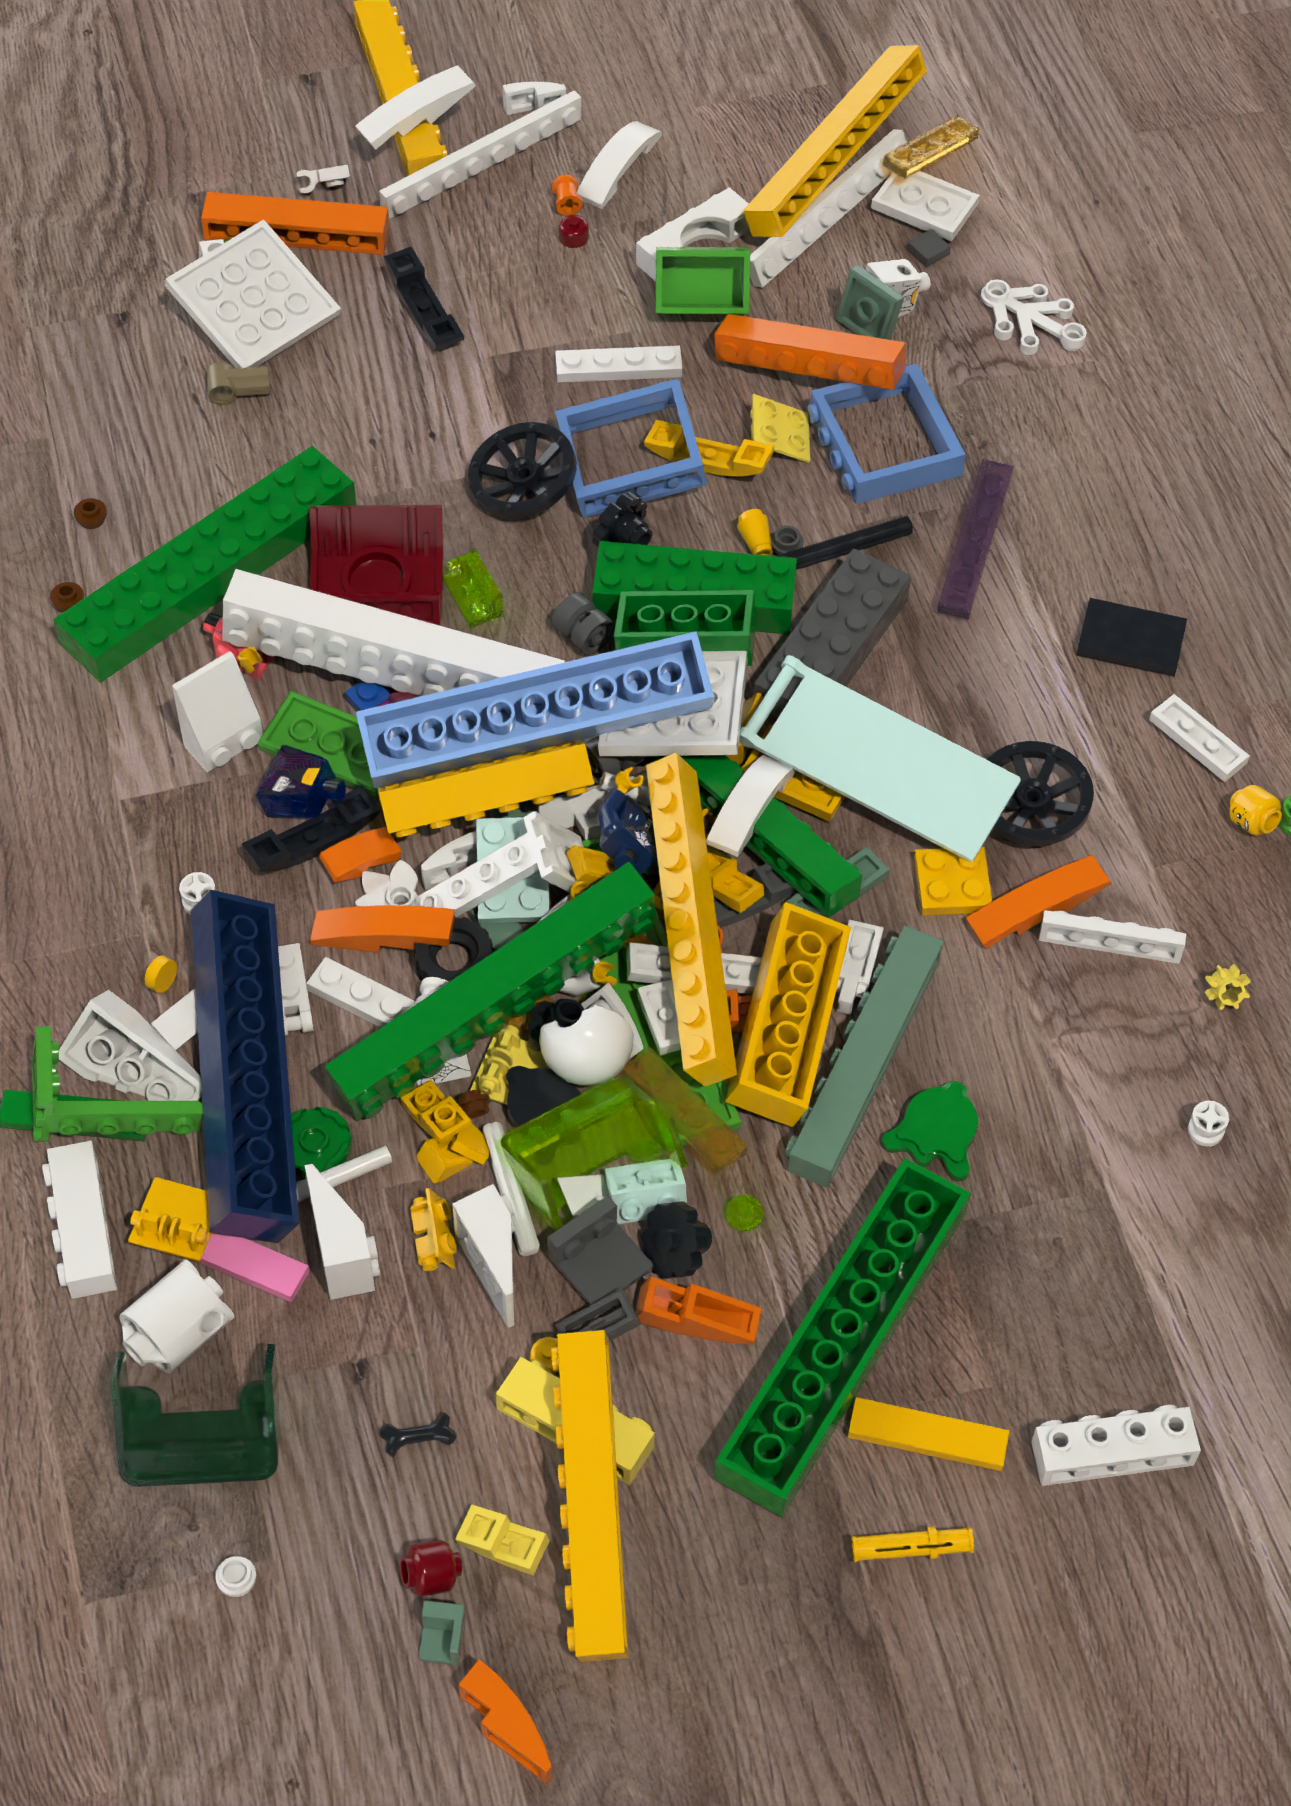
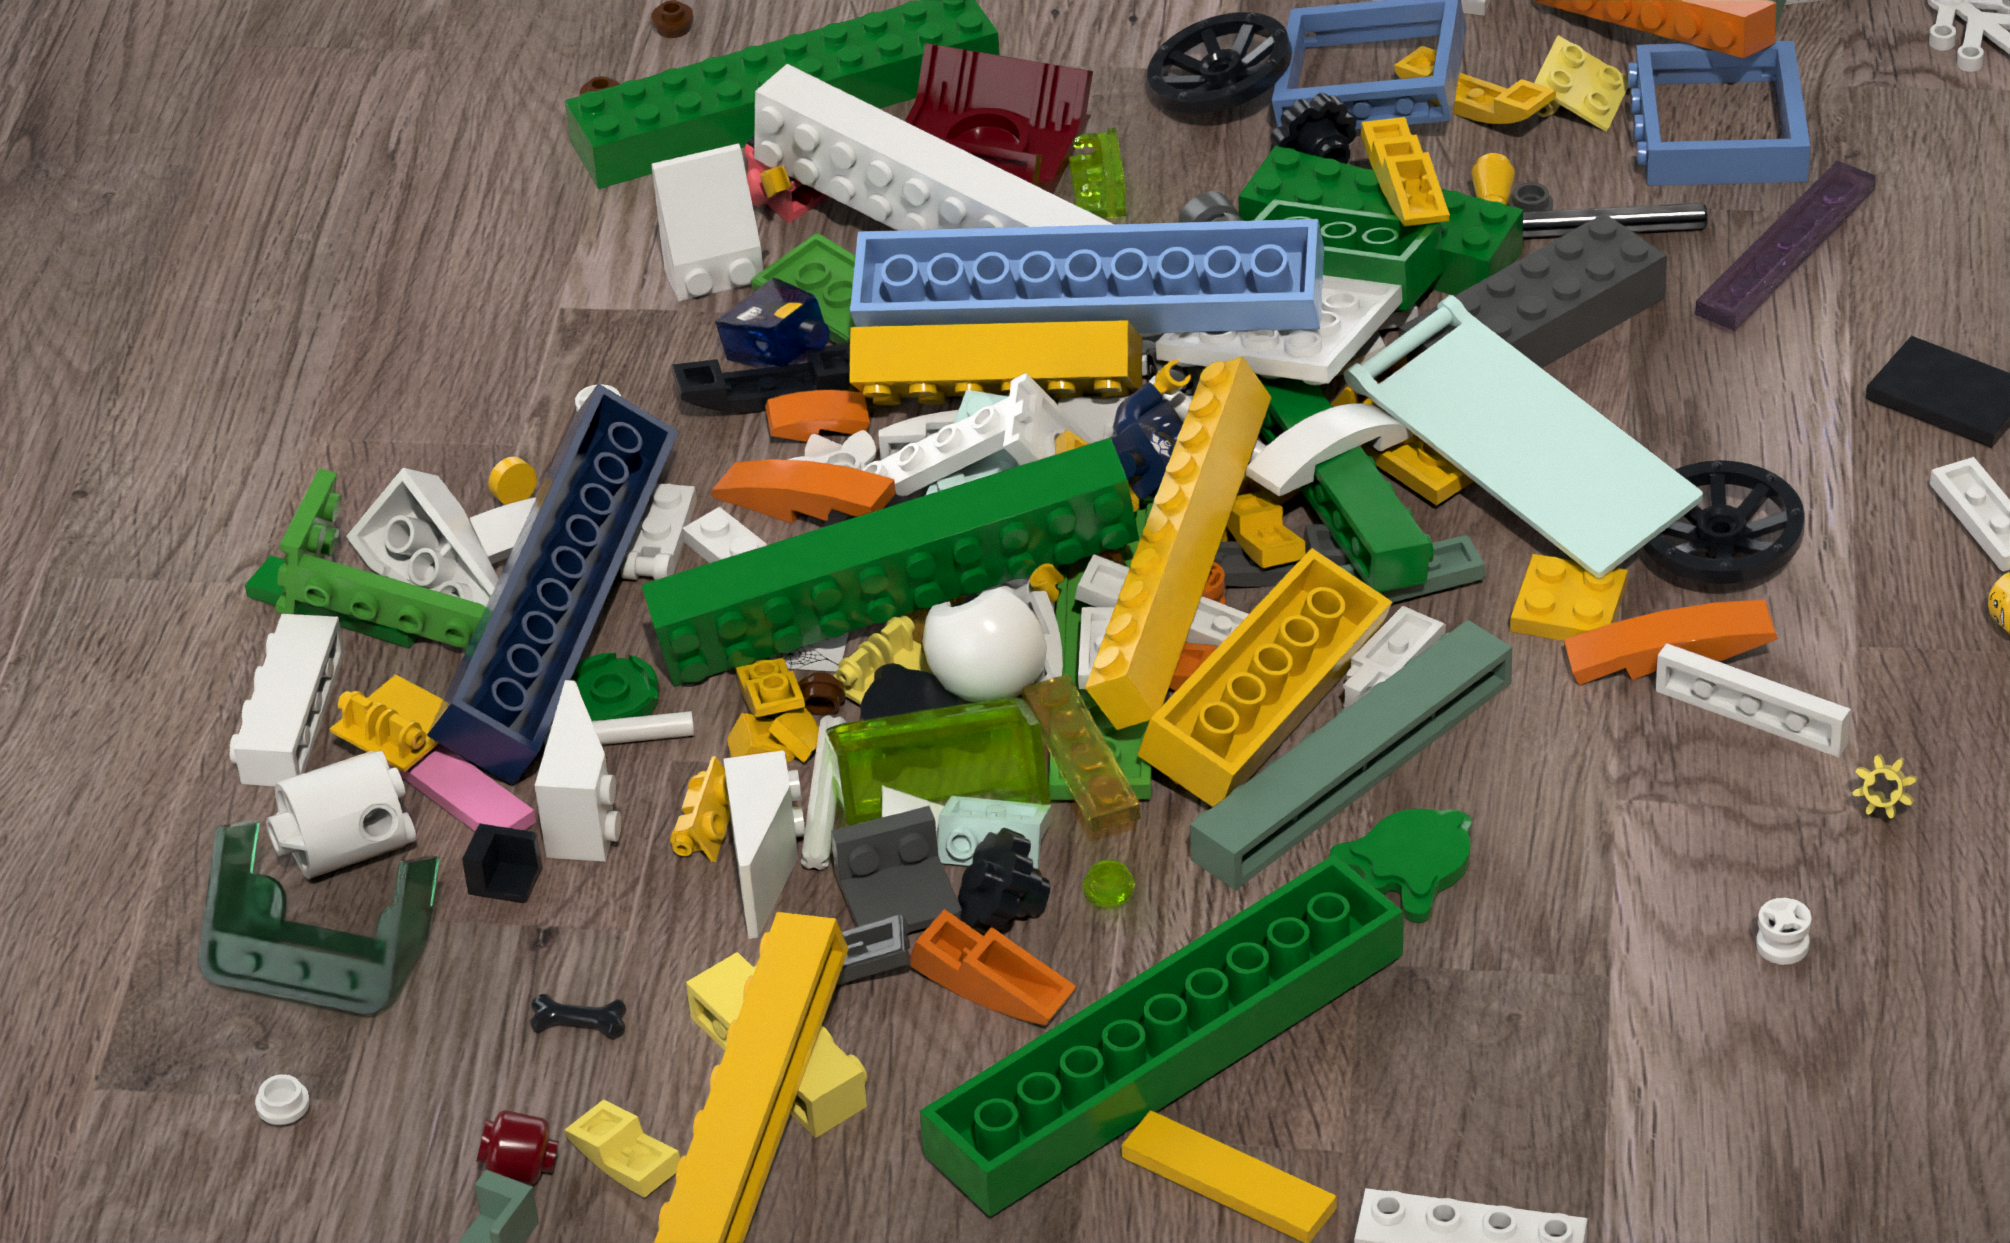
camera: 25 degrees right, 15 degrees down
(307, 1321) = (502, 863): none -> black panel
(709, 551) = (1404, 172): none -> yellow slope

